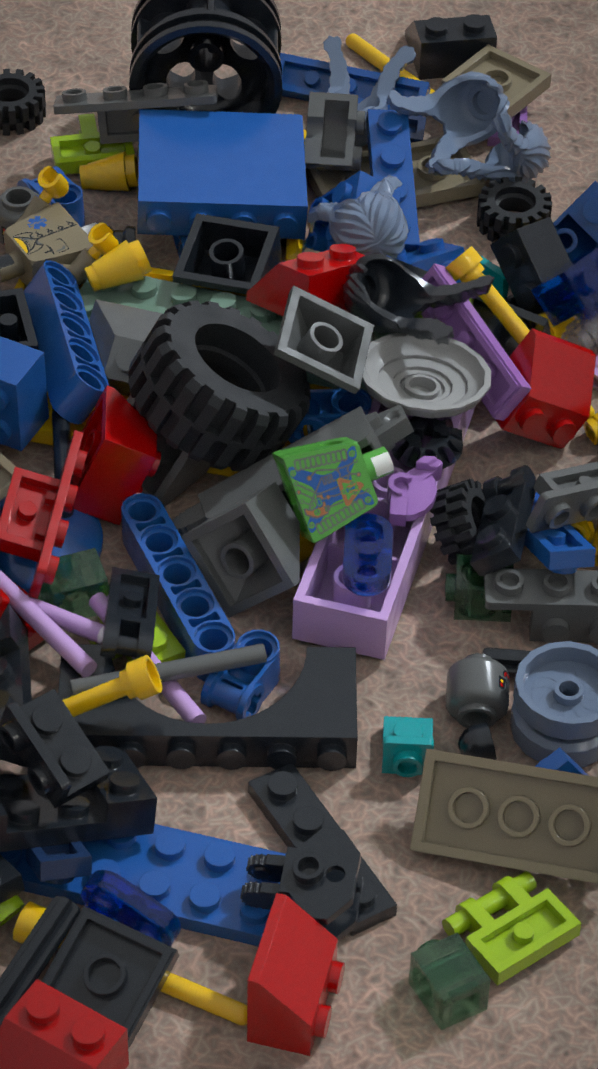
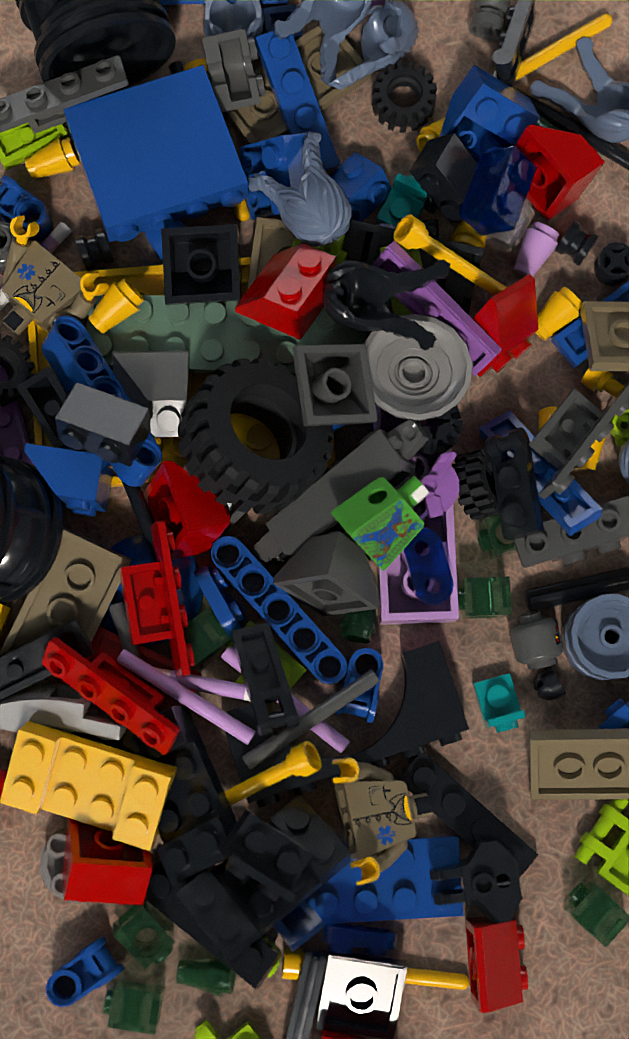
camera: 20 degrees left, 35 degrees up
(57, 322) = (103, 424): none -> black brick
(112, 545) = (212, 585): none -> blue plate
(205, 777) = (376, 815): none -> dark tan torso
(271, 615) = (359, 626): none -> clear green cone
(428, 637) = (485, 597): none -> clear green brick

